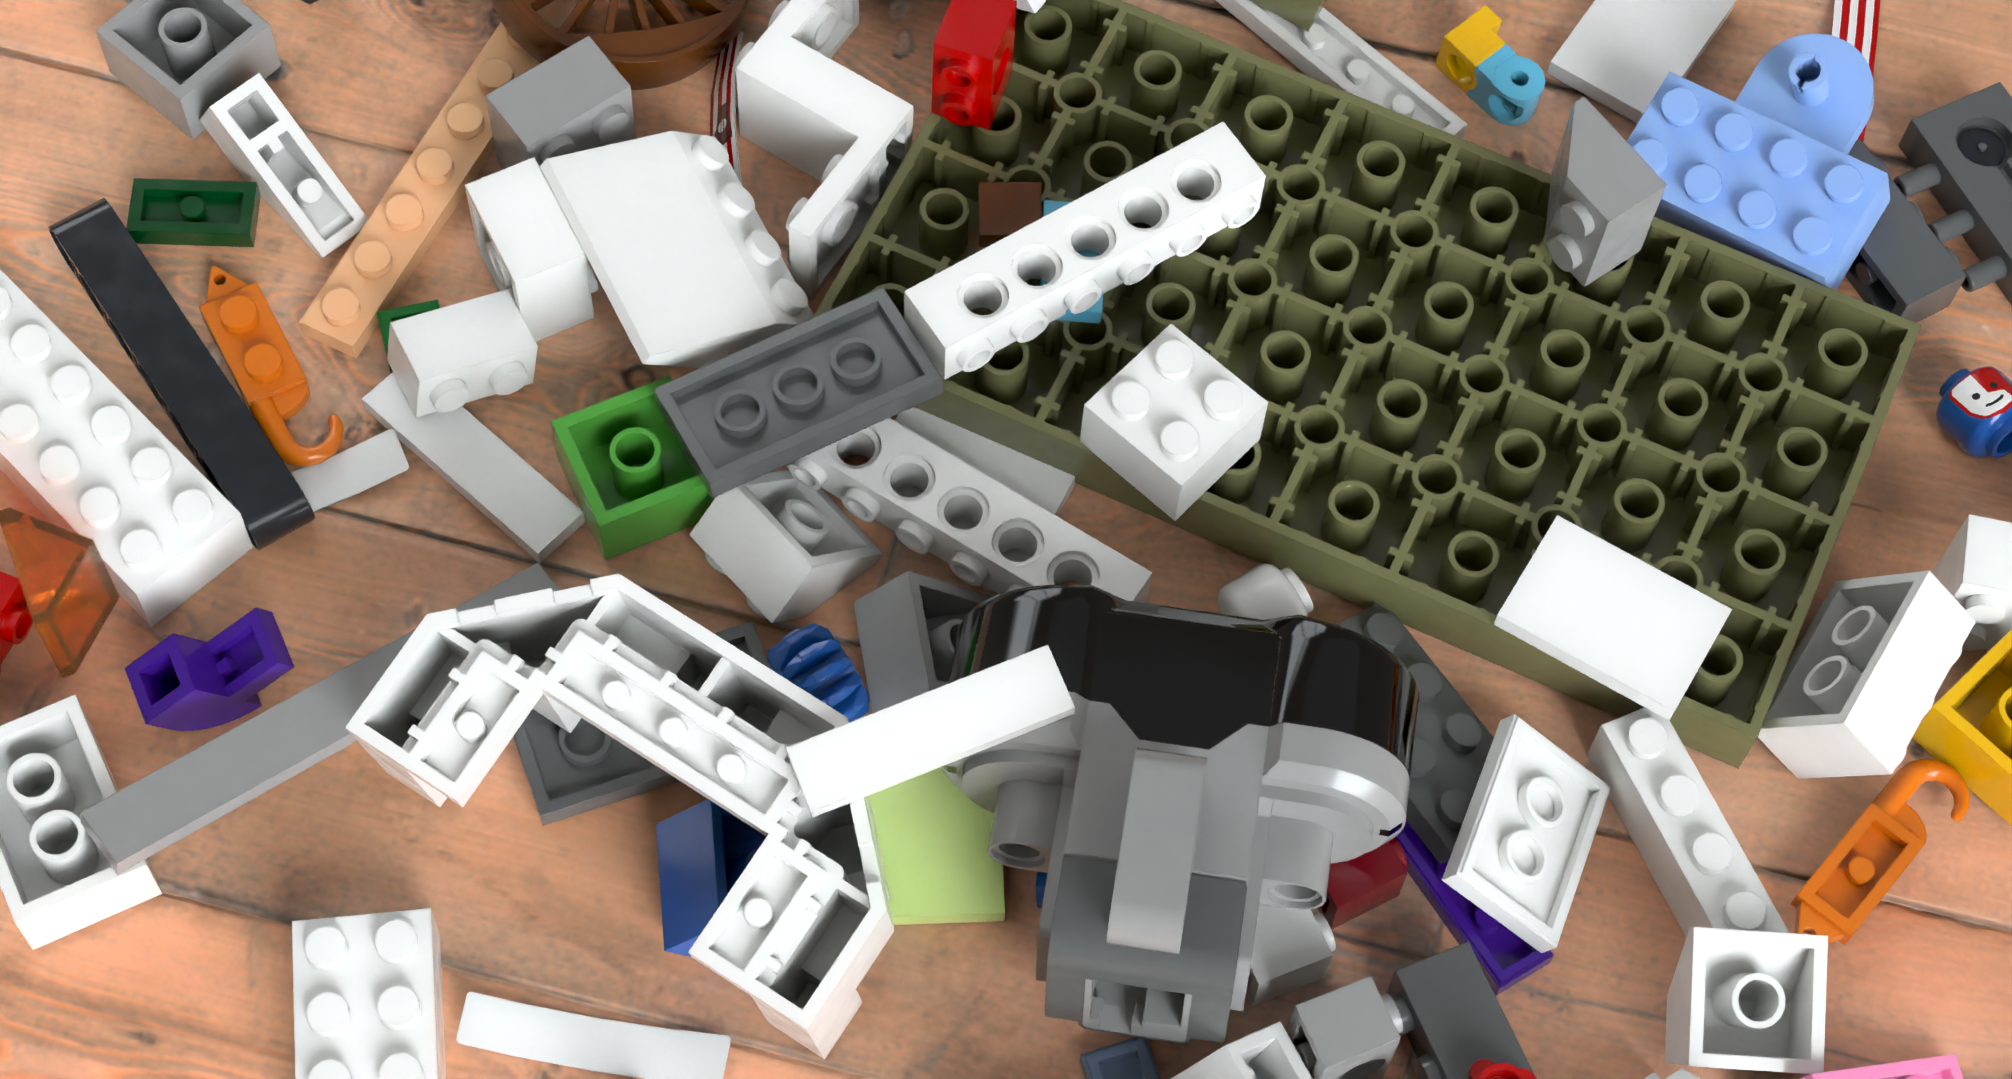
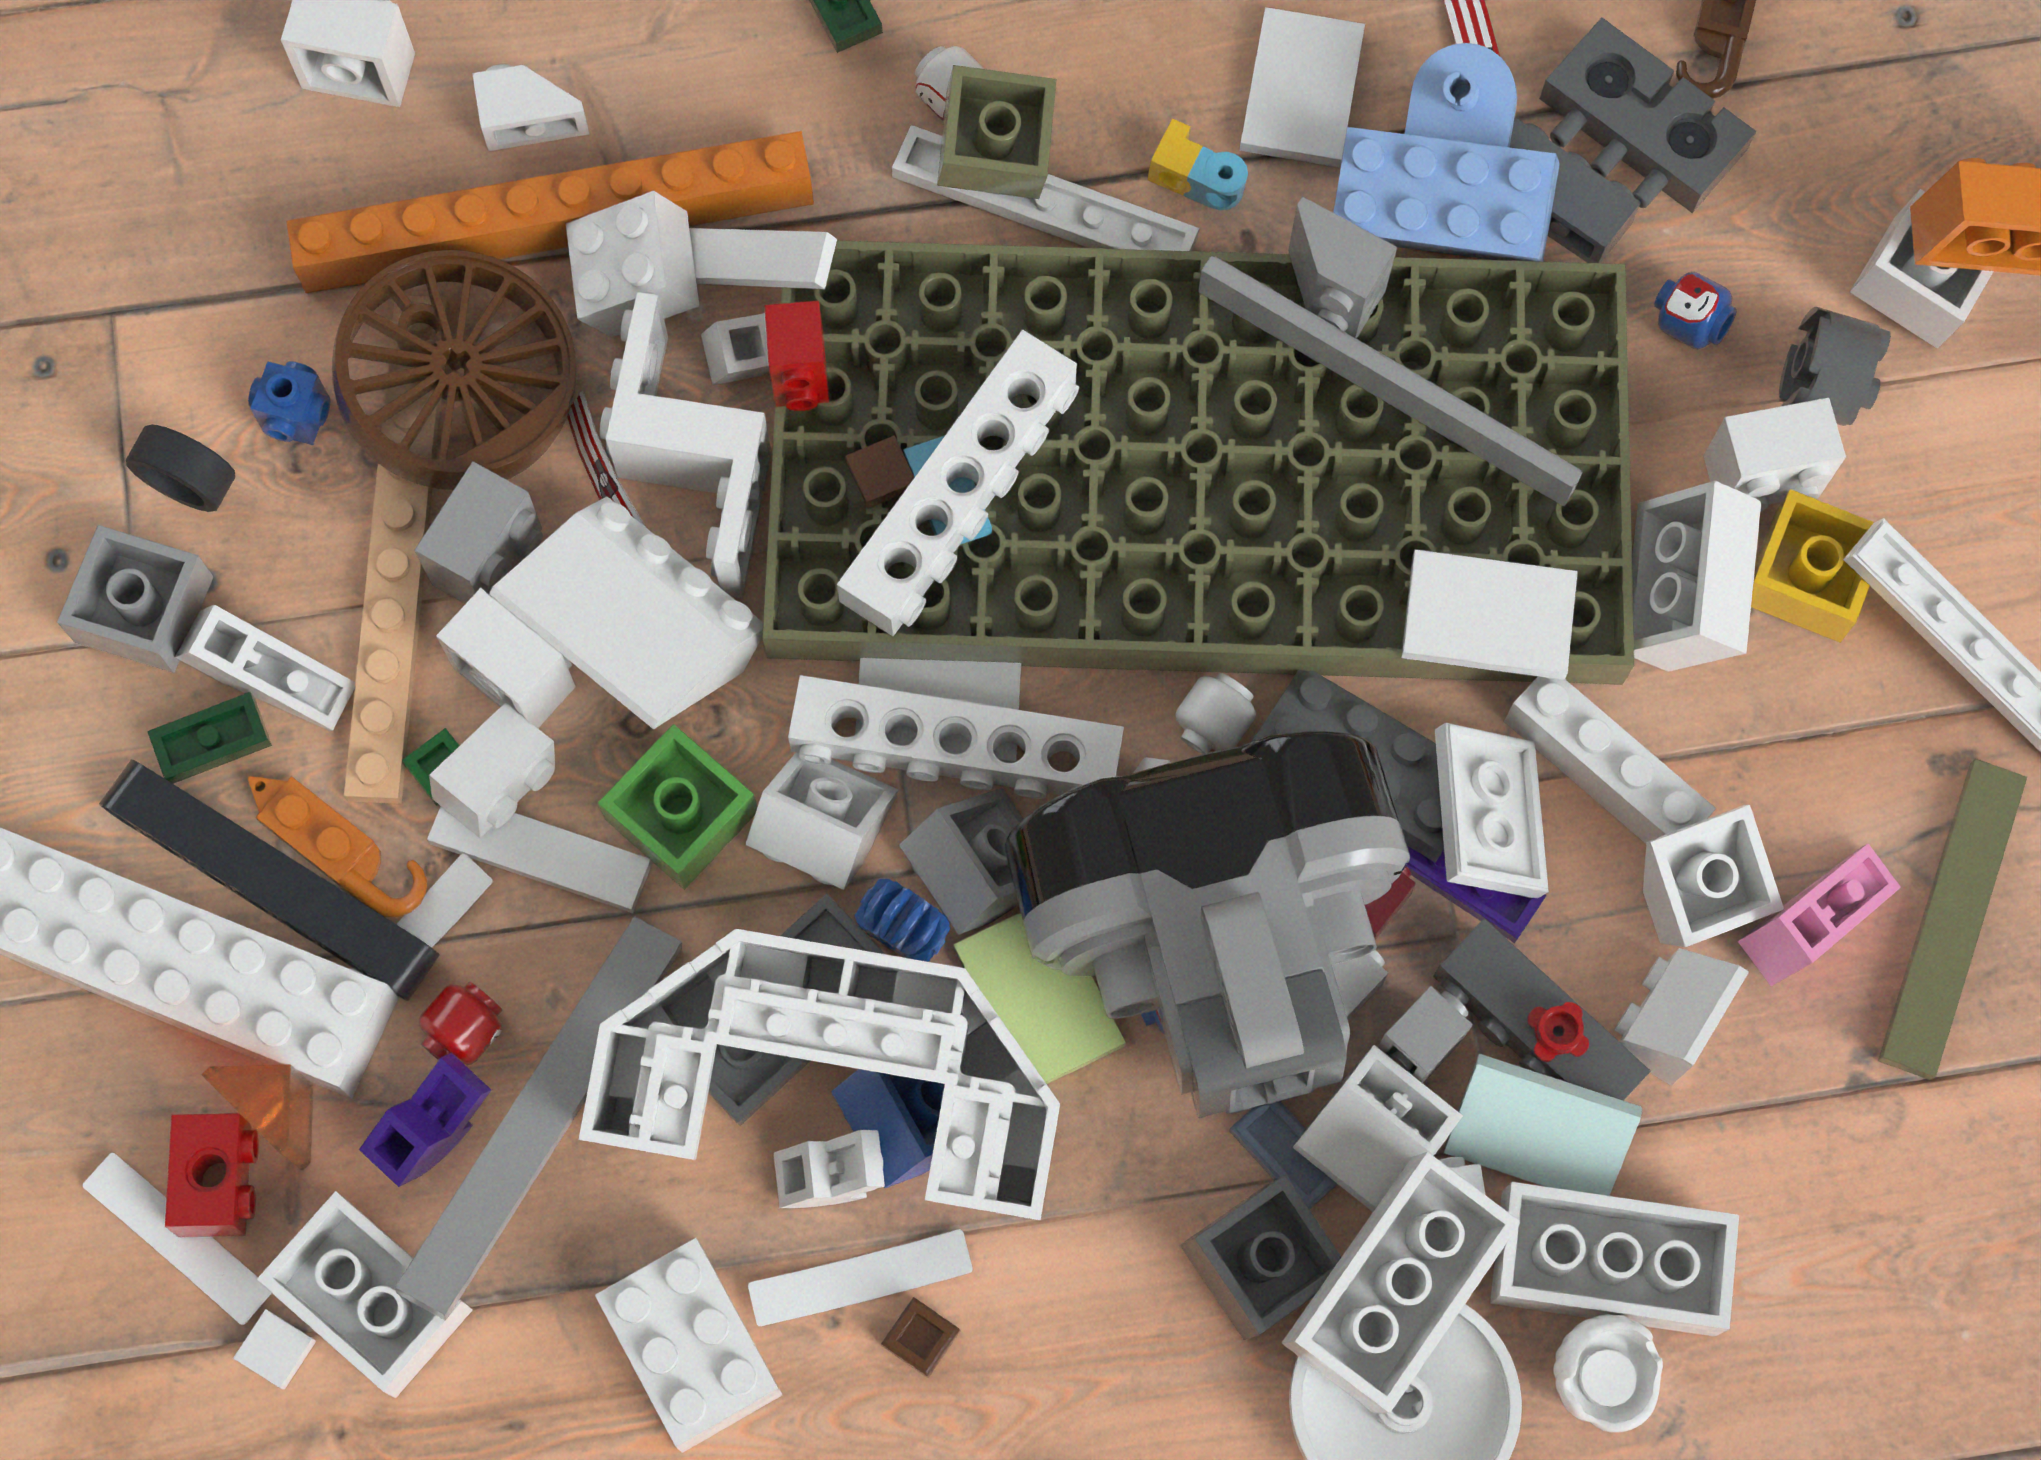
camera: 20 degrees left, 10 degrees up
(301, 591) = (460, 1023): none -> red head
(613, 908) = (829, 1170): none -> white brick
(798, 391) = (785, 698): dark grey plate -> none
(911, 50) = (736, 349): none -> white brick
(930, 730) = (1034, 953): white tile -> none
(1172, 421) = (1089, 599): white brick -> none
(1607, 337) = (1389, 380): none -> light grey tile
(1873, 854) = (1748, 716): orange plate -> none

